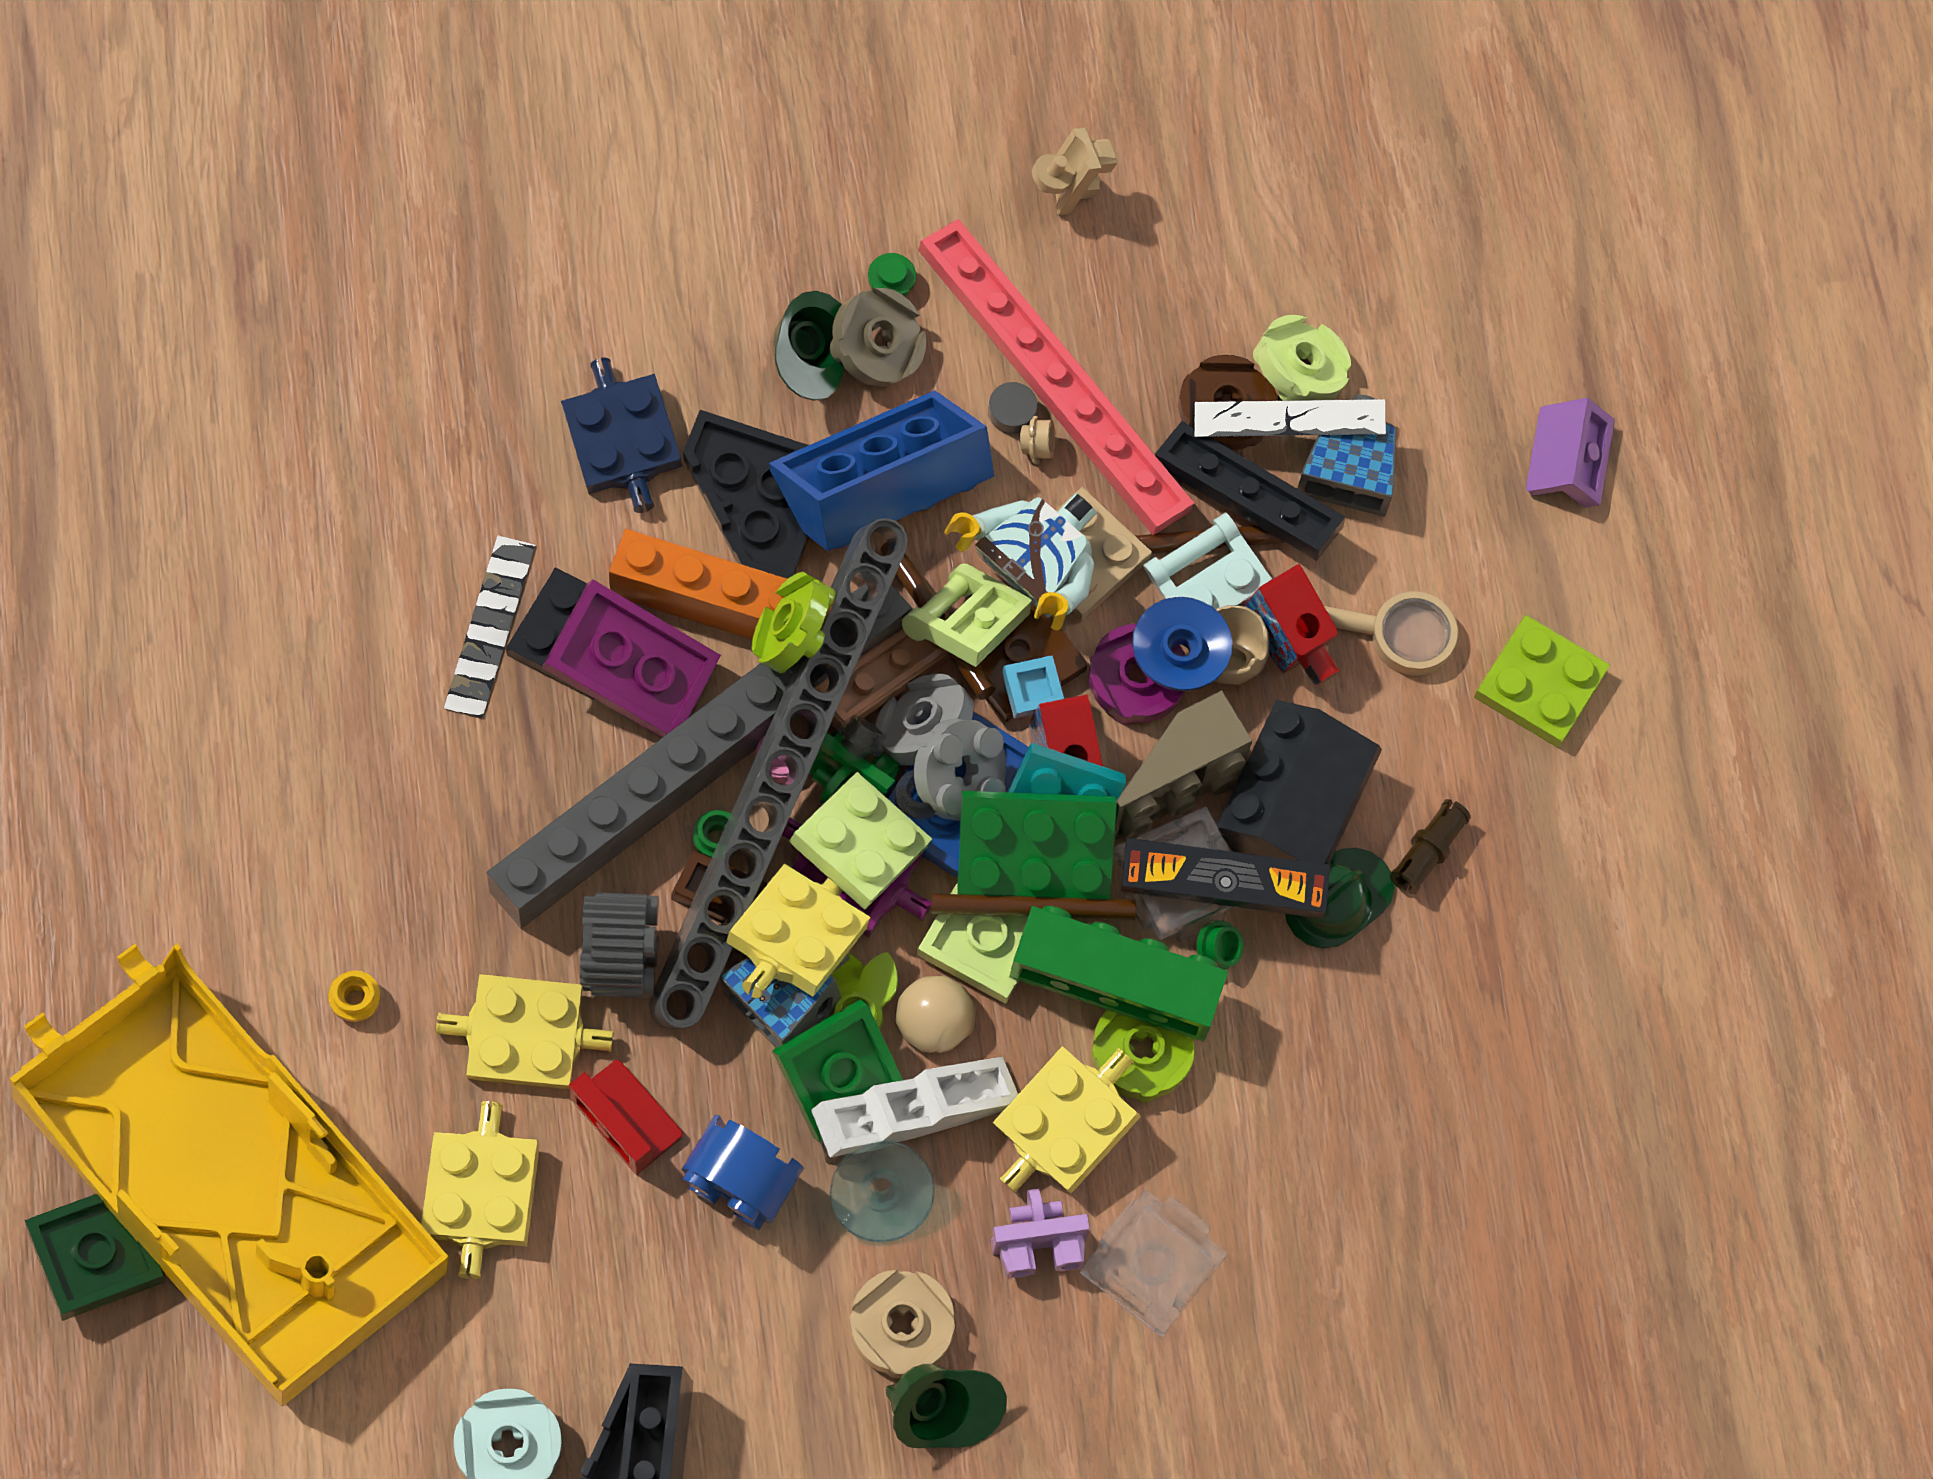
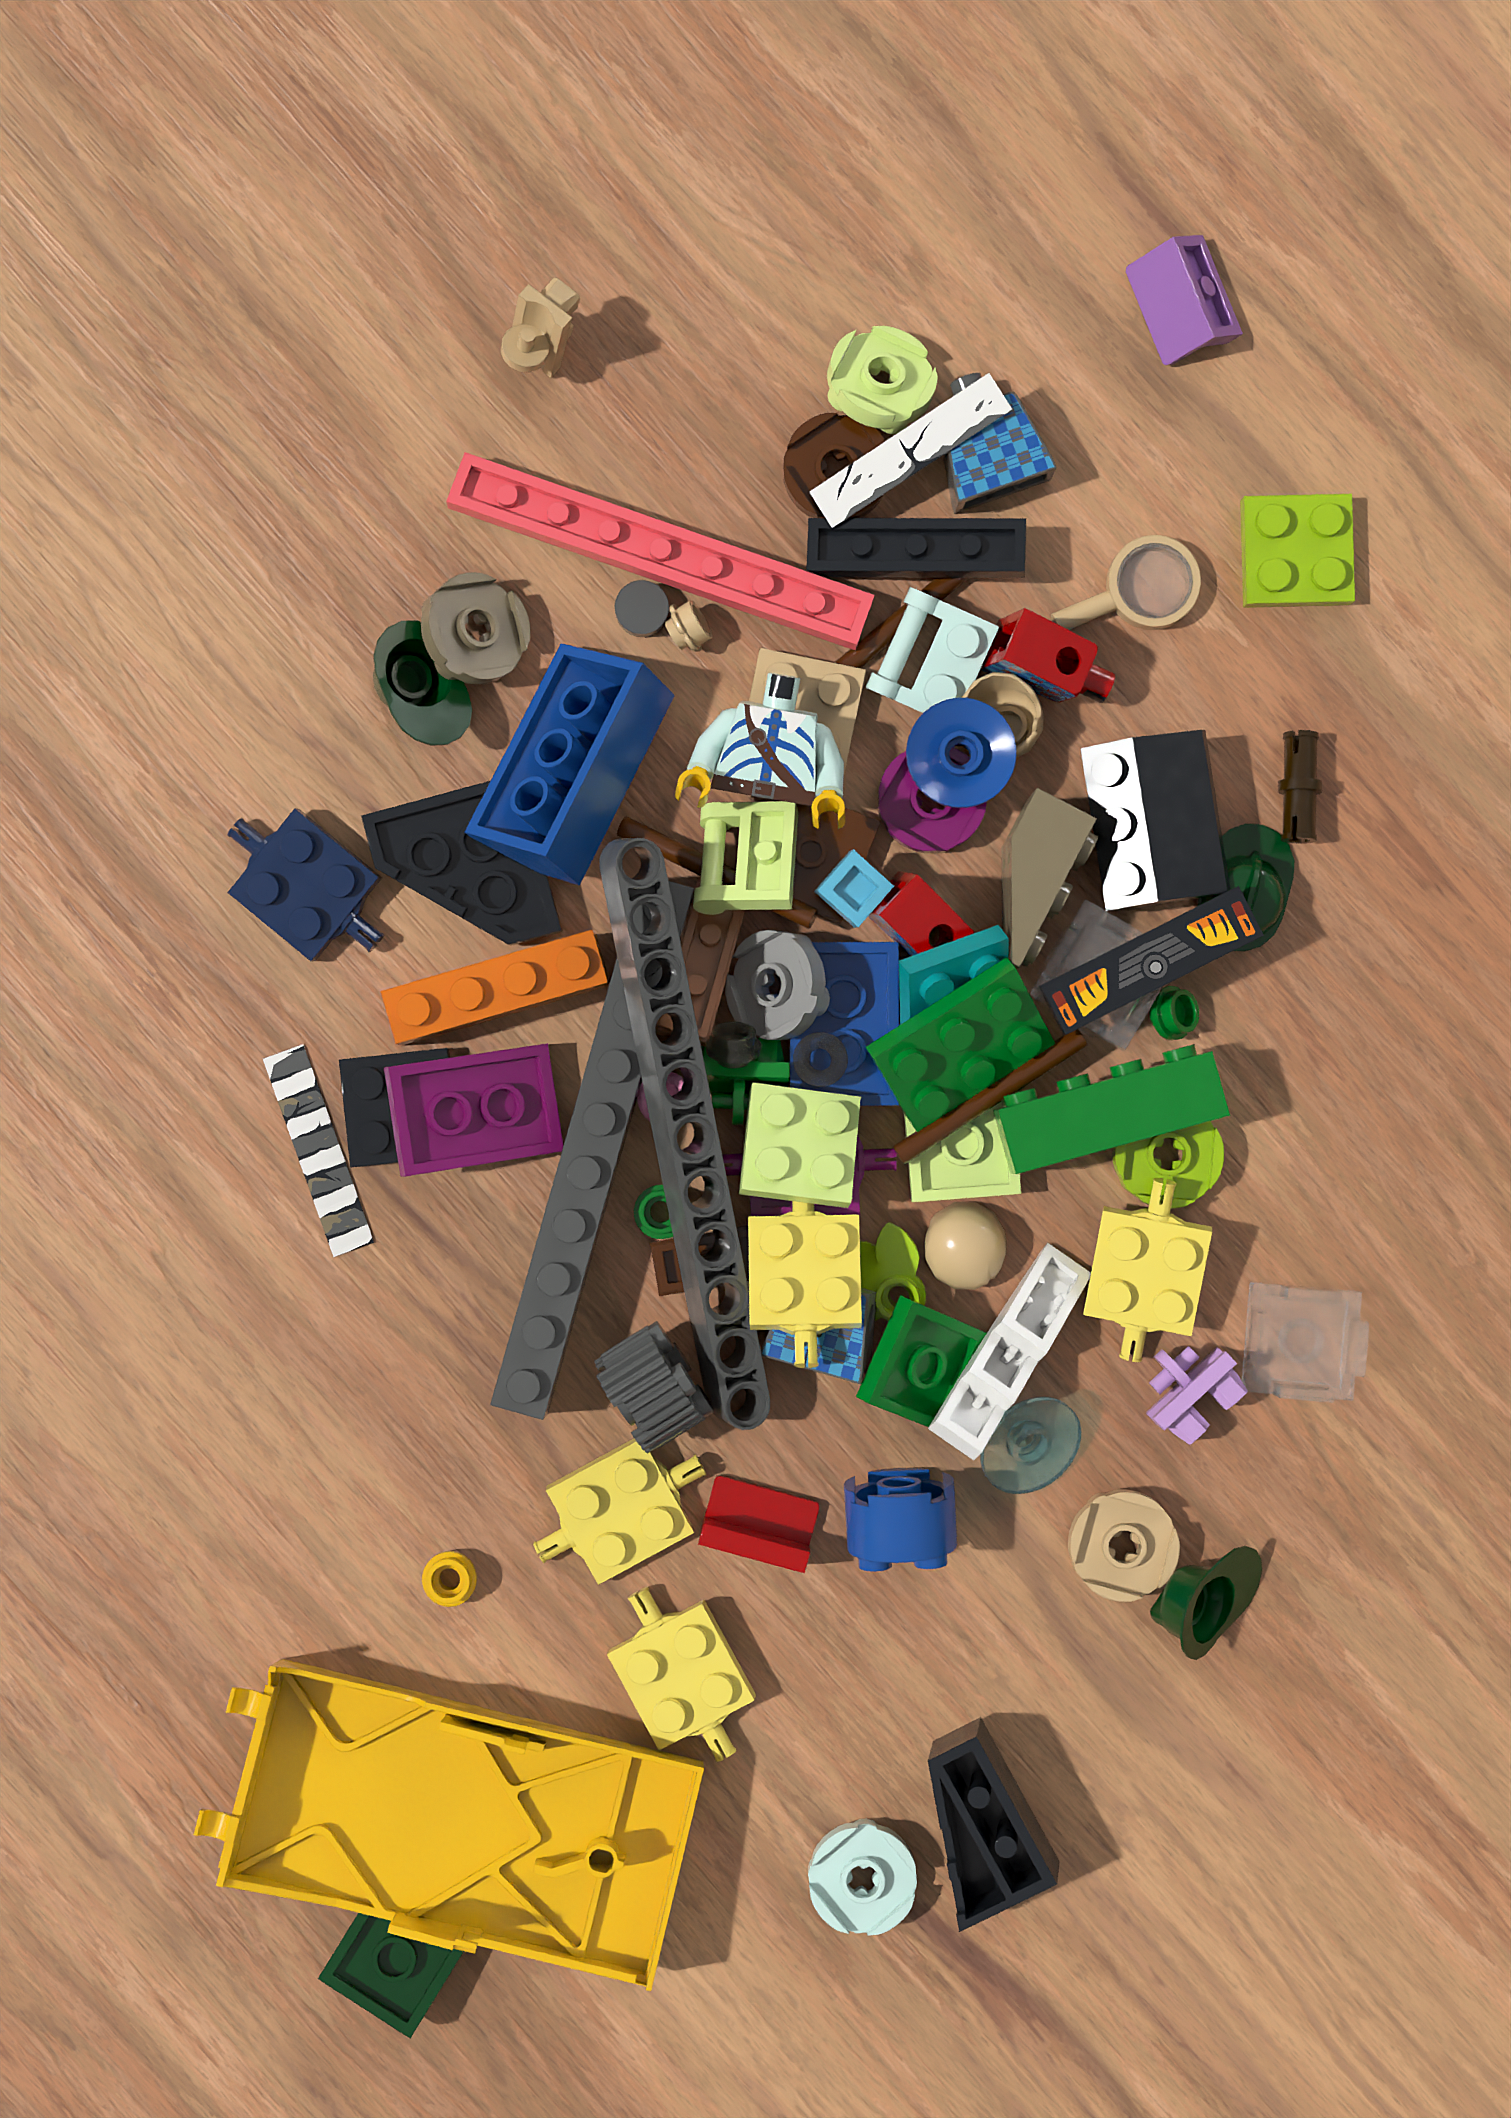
camera: 30 degrees left, 20 degrees up
(795, 623) = (606, 995): lime plate -> none
(892, 272) = (441, 552): green plate -> none
(937, 761) = (869, 1011): light grey plate -> none

